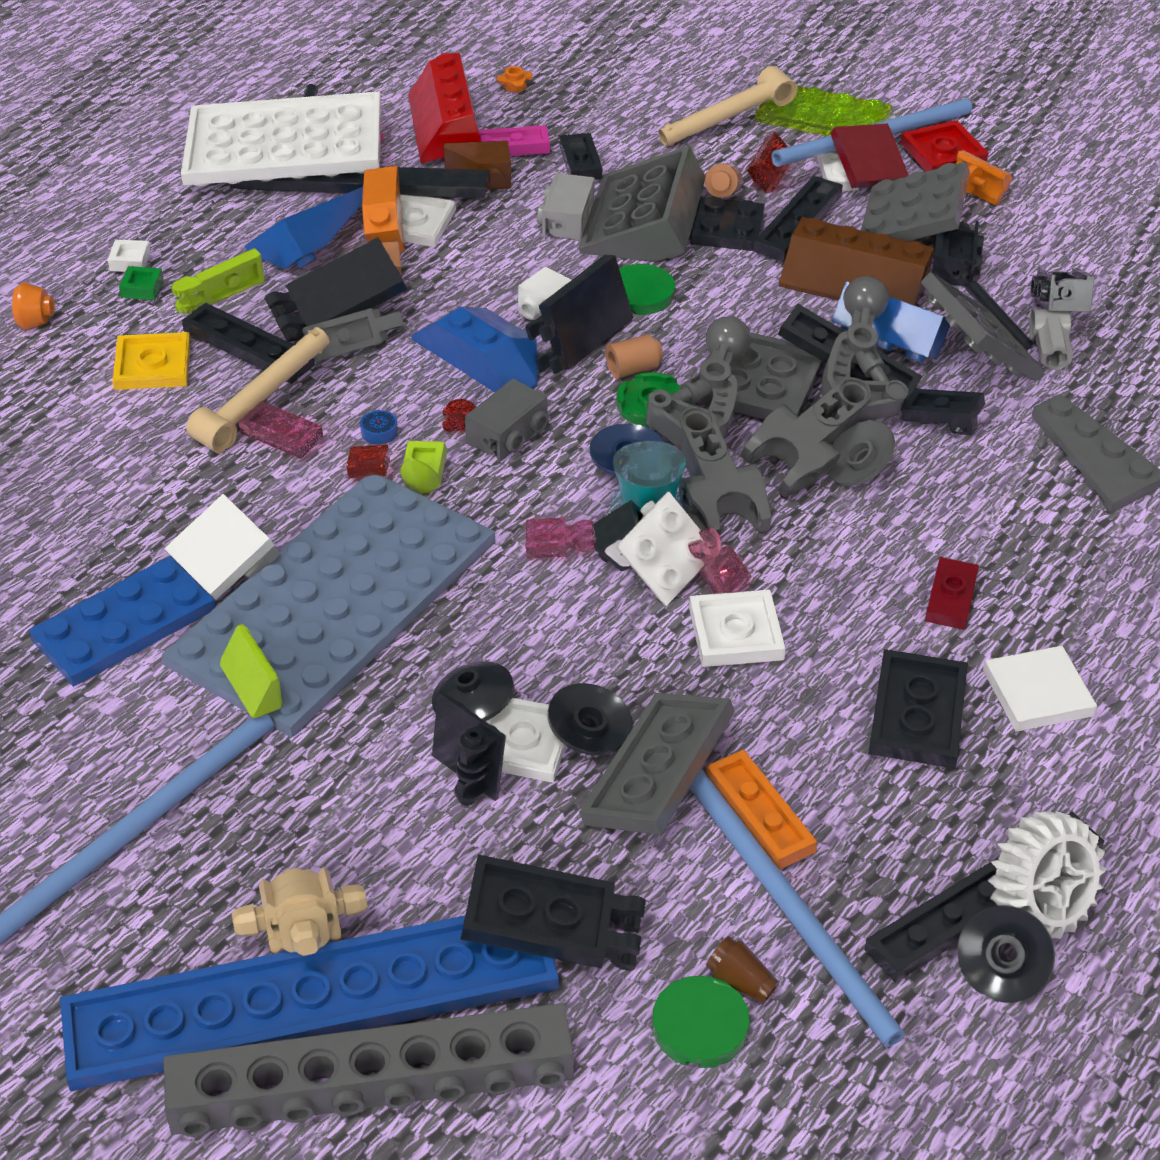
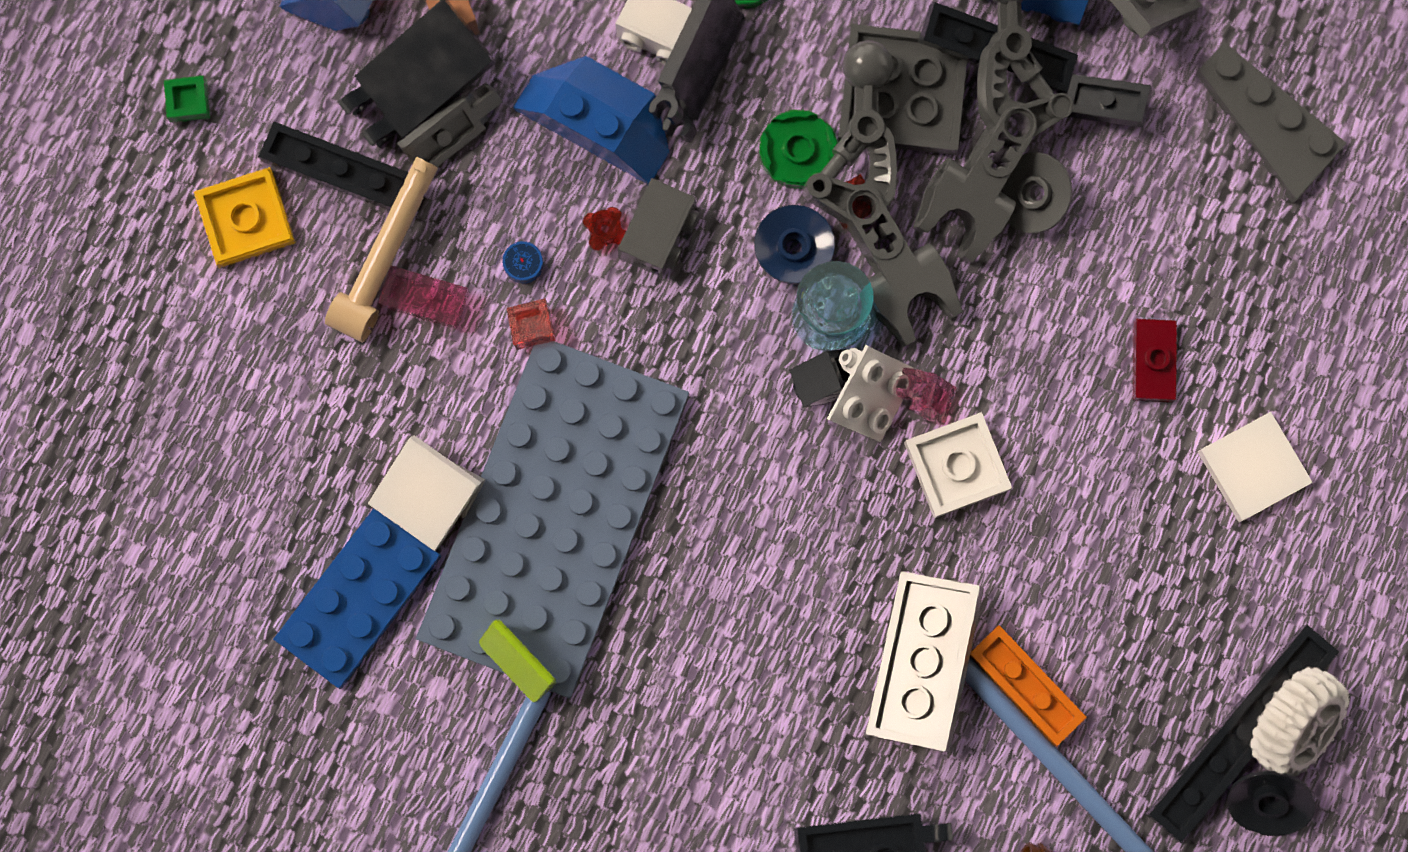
camera: 15 degrees left, 35 degrees up
(31, 306) = (81, 172): orange cone -> none
(128, 253) = (155, 56): white plate -> none
(219, 281) = (273, 80): lime hinge -> none
(423, 465) = (589, 316): lime plate -> none
(469, 749) = (766, 706): black hinge -> none
(479, 686) = (746, 615): black dish -> none
(530, 743) = (787, 649): white tile -> none
(552, 537) = (746, 388): clear pink plate -> none
(589, 719) = (867, 623): black dish -> none
(633, 356) = (765, 93): nougat brick -> none
(919, 709) = (1148, 526): black plate -> none

